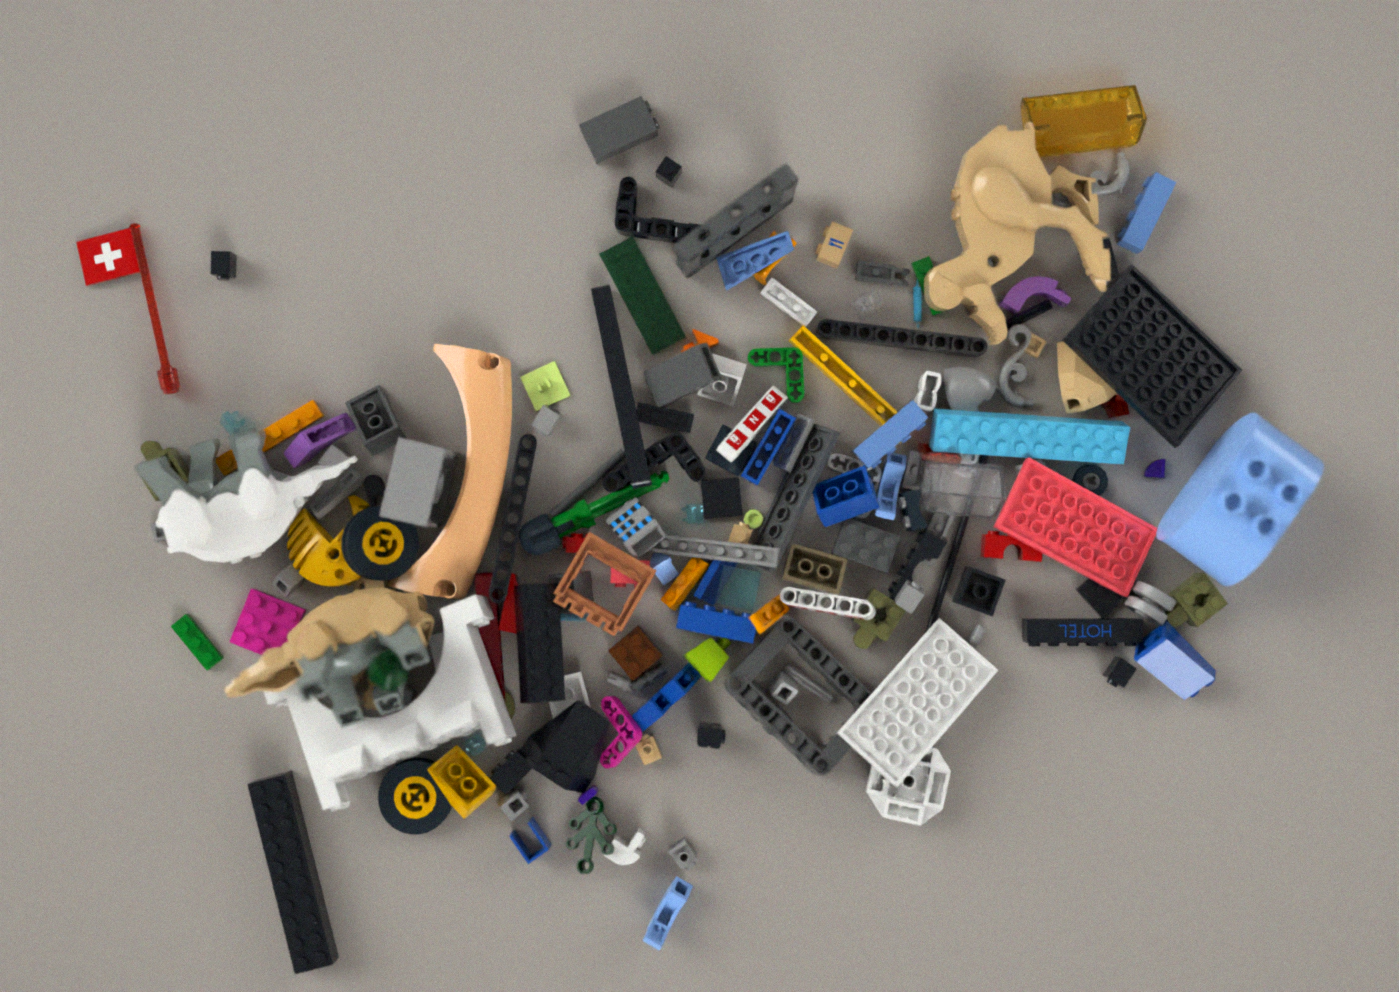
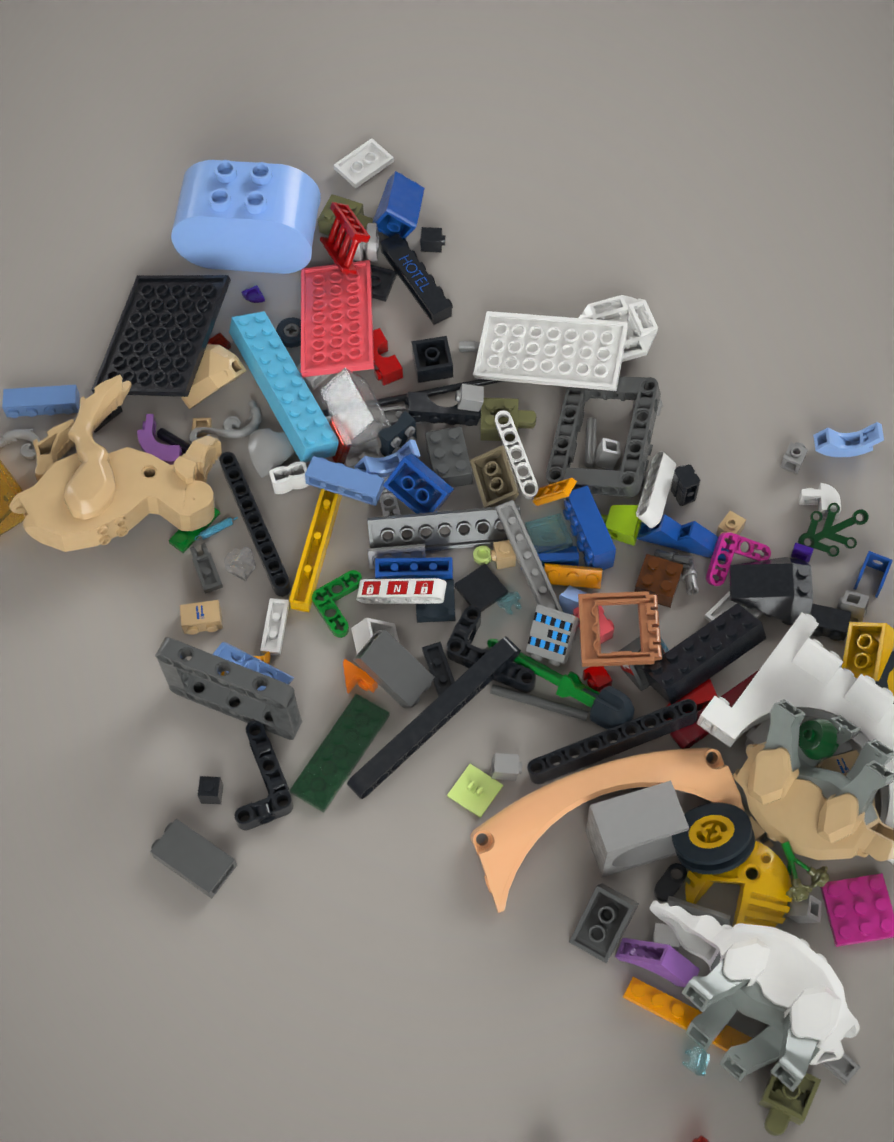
camera: 115 degrees left, 25 degrees down
(302, 606) = (798, 890): none -> olive plant
(719, 705) = (656, 489): none -> white beam
(1161, 592) = (355, 232): none -> red fence
(1254, 661) = (363, 163): none -> white plate

